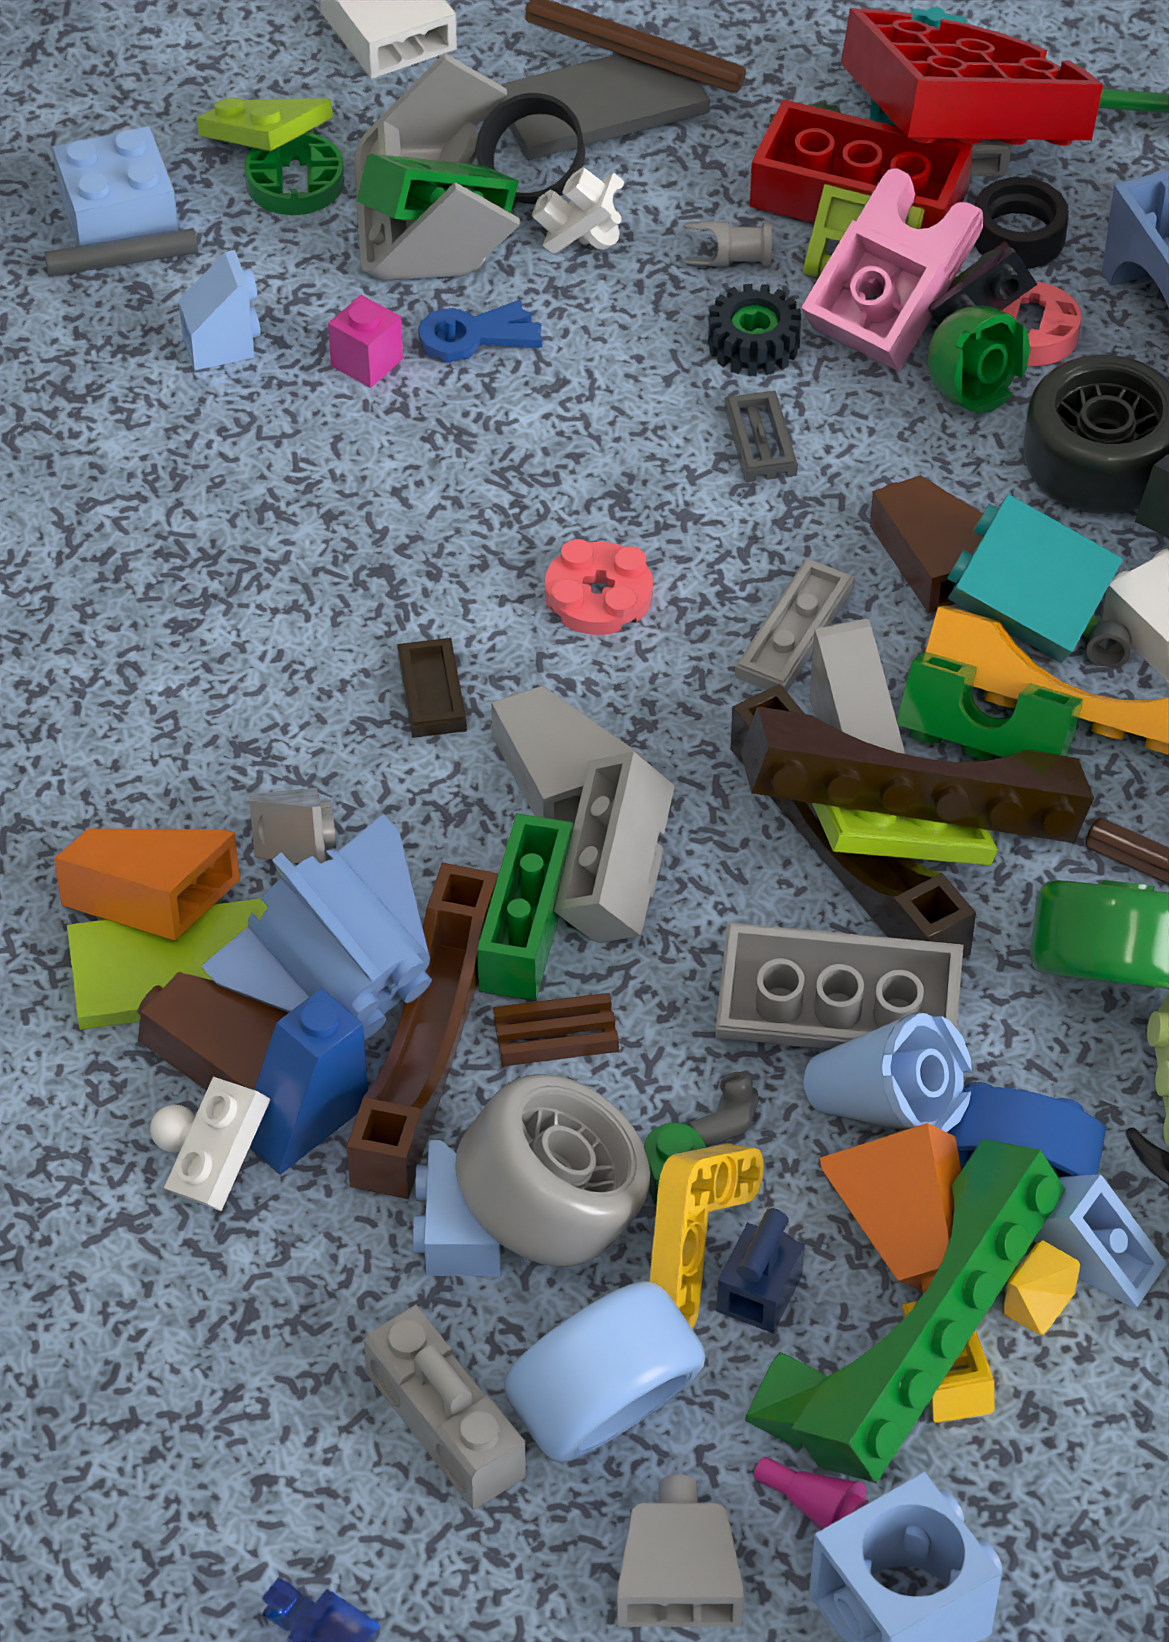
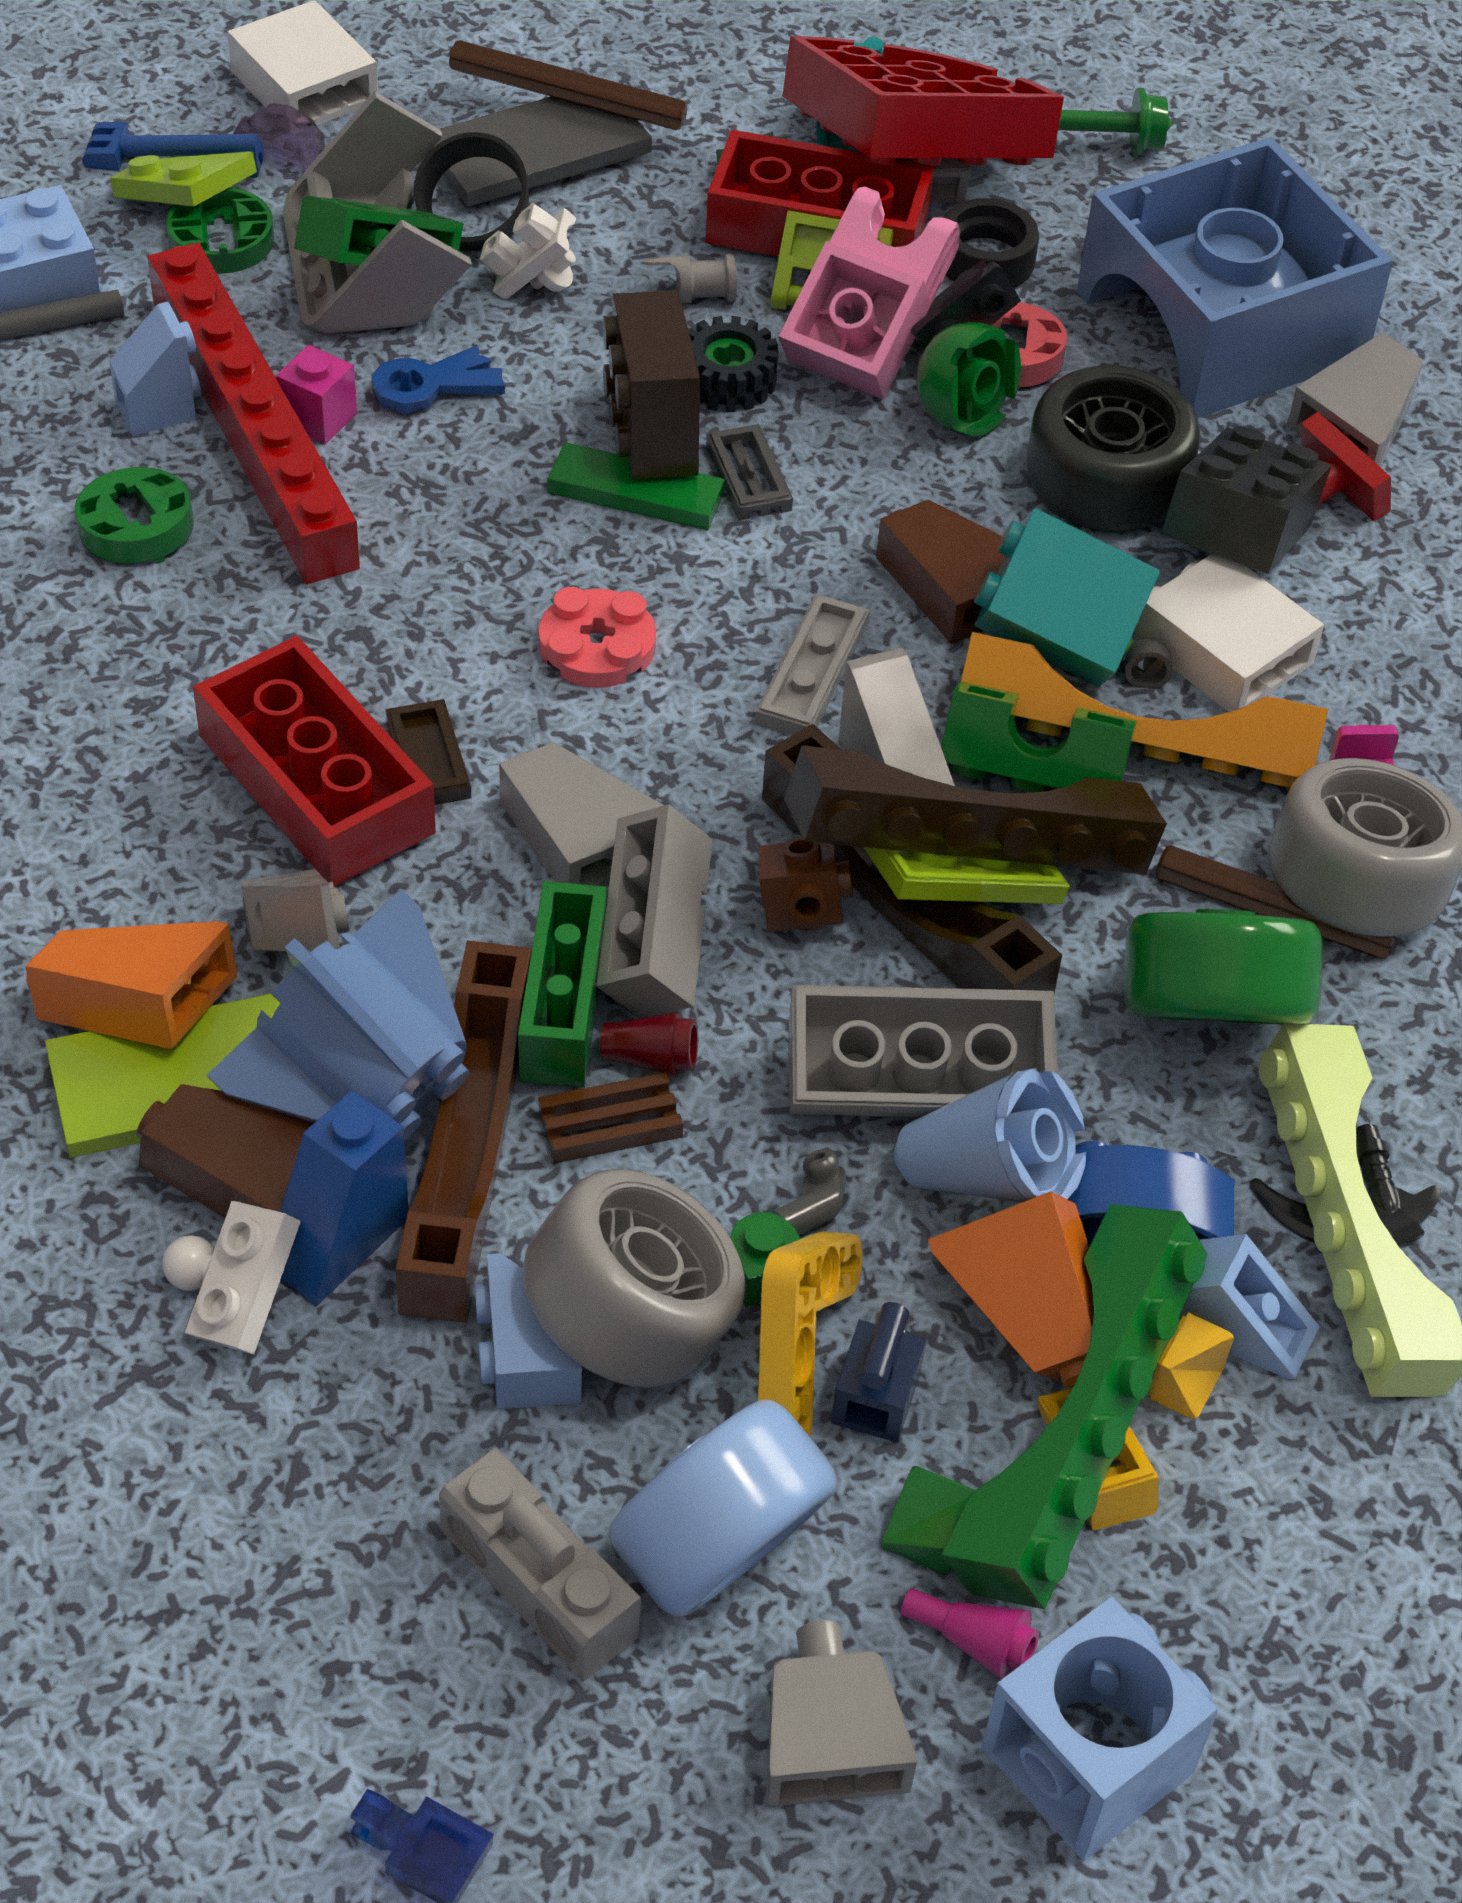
camera: 10 degrees left, 0 degrees up
(163, 461) = (110, 534): none -> green piece
(203, 80) = (113, 142): none -> blue hinge
(307, 358) = (258, 418): none -> red brick
(327, 688) = (315, 760): none -> red brick
(362, 80) = (285, 133): none -> clear purple tile
(601, 965) = (652, 1043): none -> dark red cone
(653, 444) = (607, 481): none -> green tile
(674, 350) = (652, 384): none -> dark brown piece
(753, 832) = (803, 885): none -> reddish brown brick

